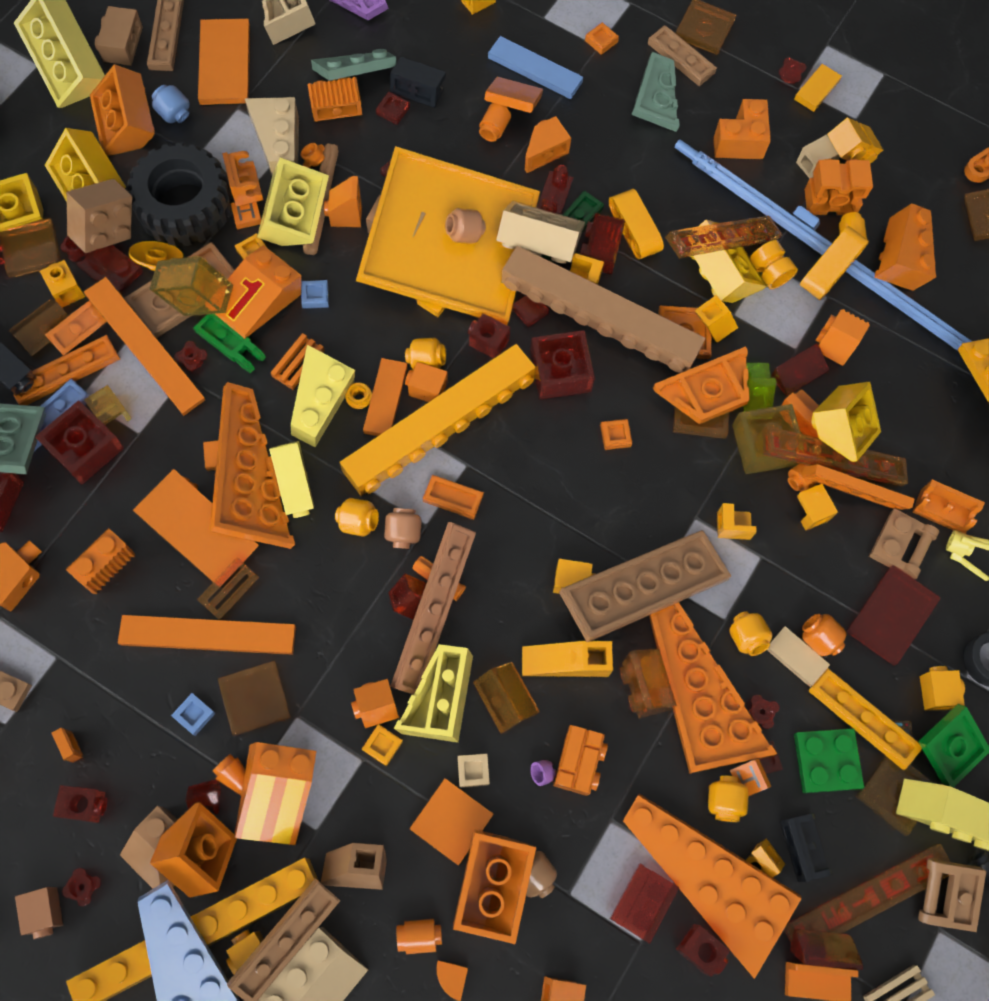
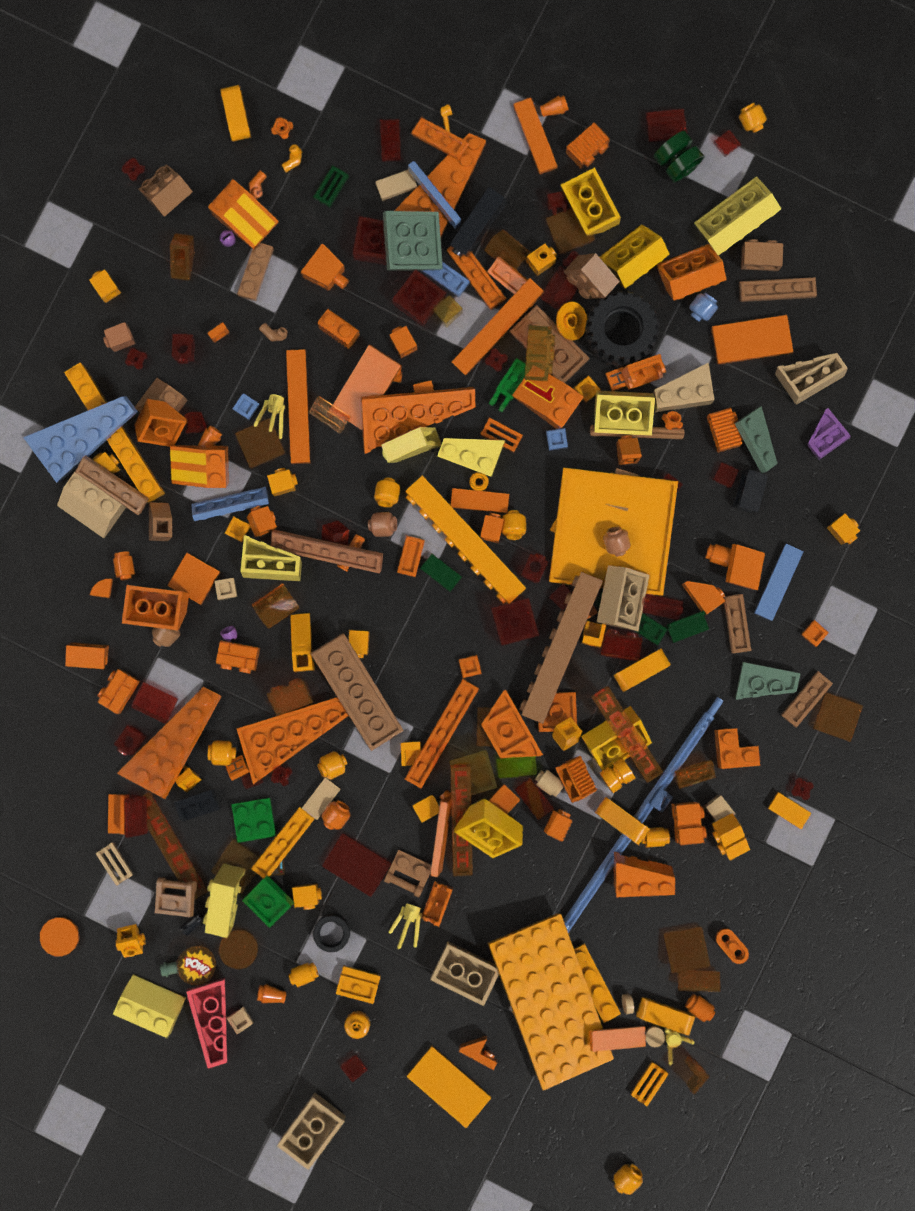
camera: 90 degrees right, 15 degrees up
(90, 660) = (273, 335): none -> medium nougat arm
(138, 473) = (403, 341): none -> orange brick
(200, 667) = (275, 406): none -> light yellow plant
(318, 667) = (282, 481): none -> light orange brick
(341, 752) = (229, 504): none -> medium blue plate
(481, 458) = (441, 572): none -> dark green tile
(582, 168) = (687, 627): none -> dark green panel
(585, 116) = (737, 623): none -> medium nougat tile
(622, 963) = (118, 691): none -> orange brick
(709, 479) = (441, 733): none -> orange tile
(772, 178) = (695, 774): none -> clear orange plate
(778, 313) = (576, 779): none -> orange brick
(781, 347) = (549, 783): none -> tan brick

